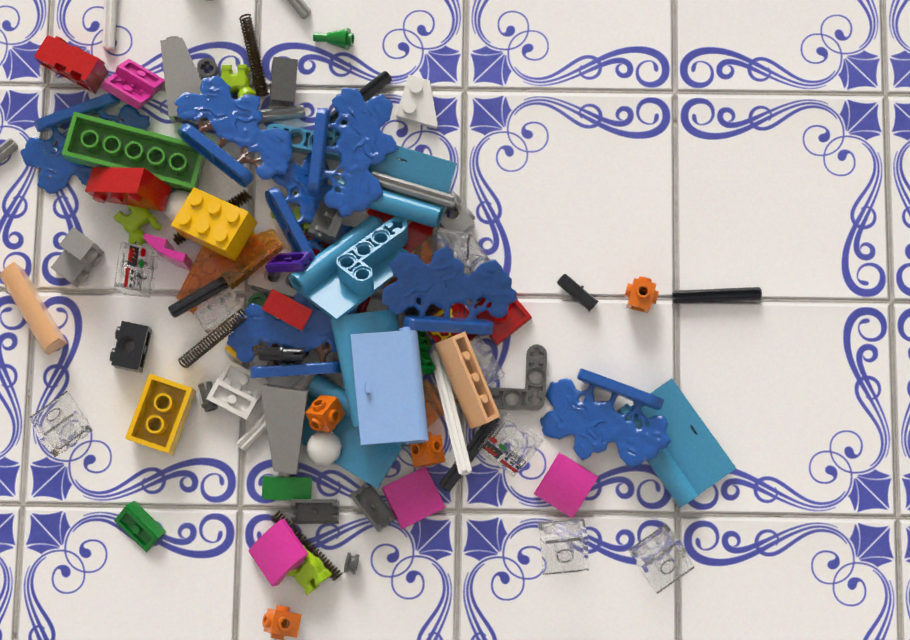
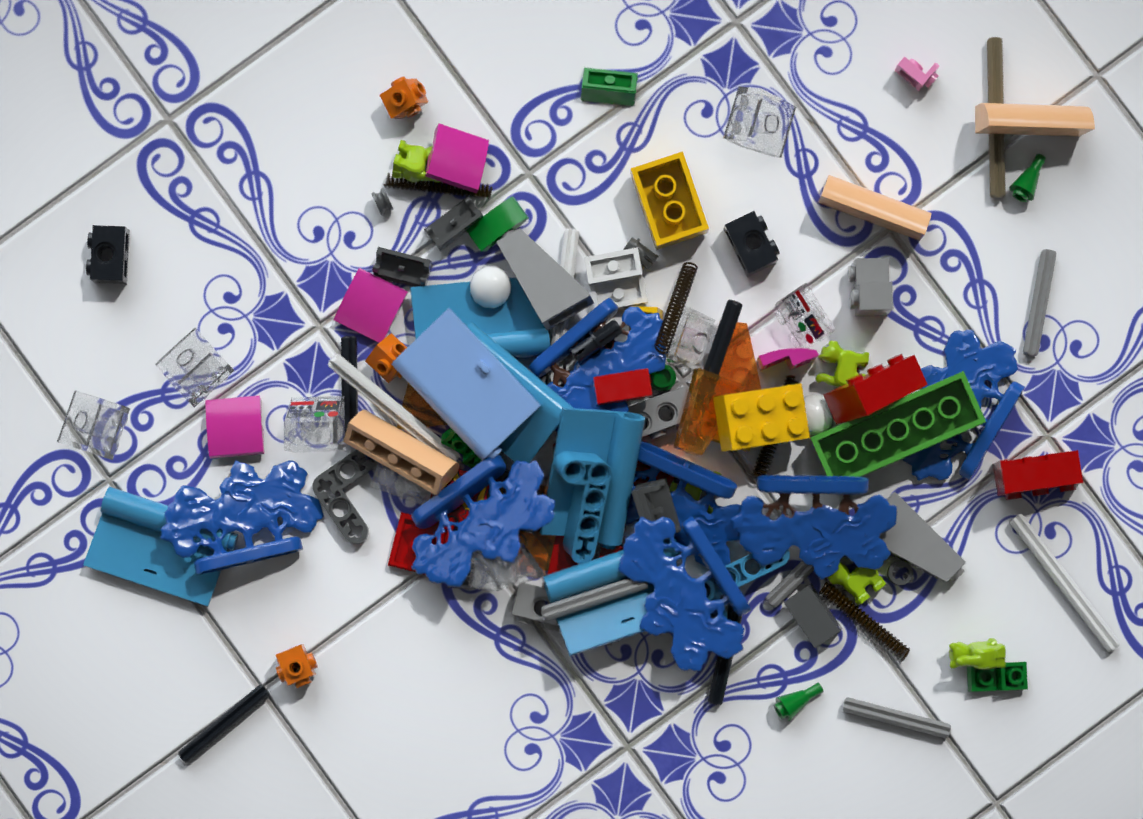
camera: 145 degrees right, 5 degrees up
(133, 84) = (959, 500): dark pink slope -> none
(289, 262) = (656, 430): dark purple tile -> none
(325, 413) = (511, 317): orange brick -> none
(417, 103) = (663, 697): white wing -> none
(577, 292) = (361, 623): black axle -> none

